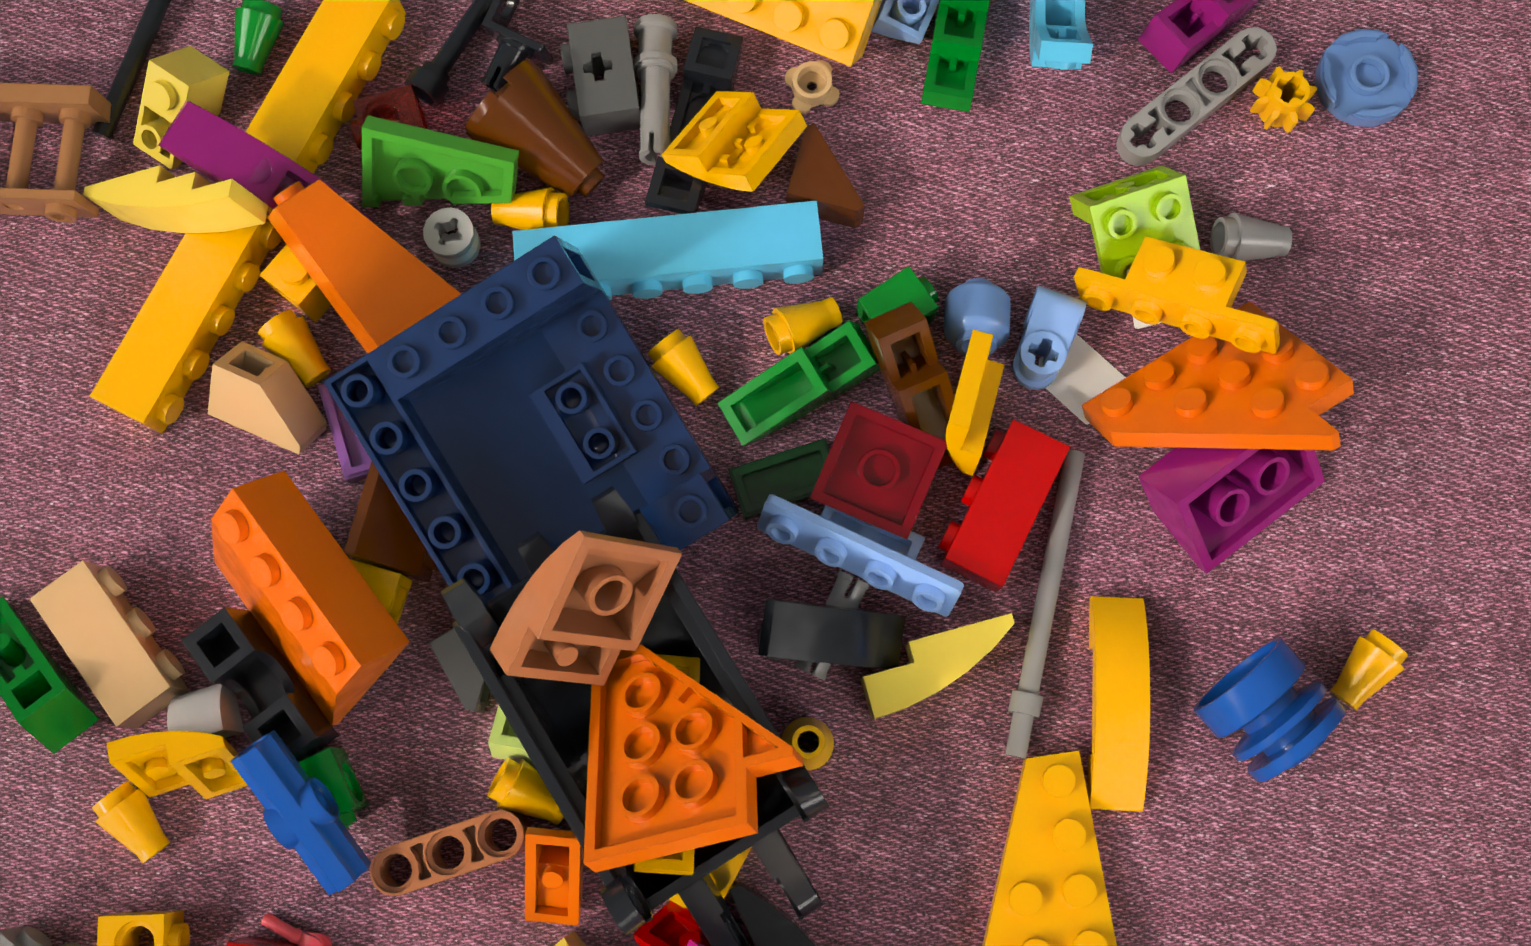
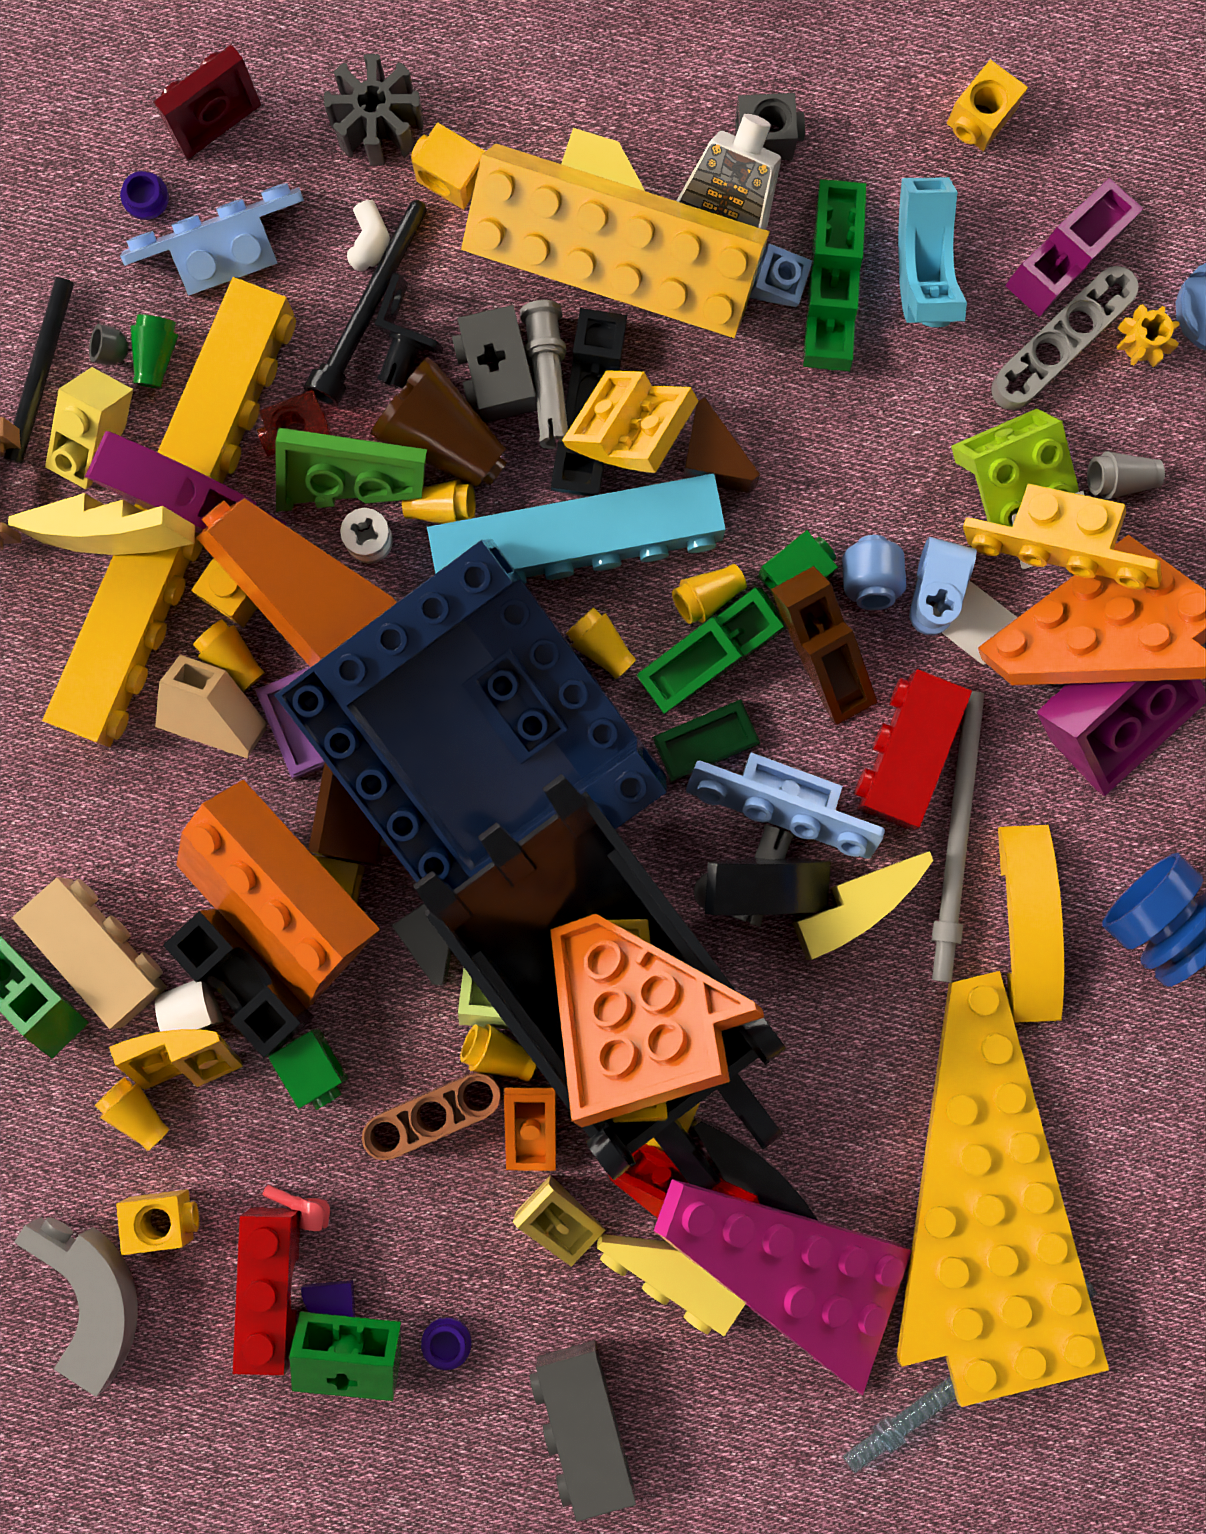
camera: 10 degrees left, 5 degrees up
(211, 28) = (107, 345): none -> dark grey hinge
(301, 812) = (295, 1093): blue piece -> none
(584, 608) = (546, 890): nougat slope -> none
(811, 72) = (700, 344): tan plate -> none
(824, 738) = (743, 971): yellow cone -> none
(879, 470) = (795, 728): dark red plate -> none
(973, 404) = (880, 658): yellow slope -> none

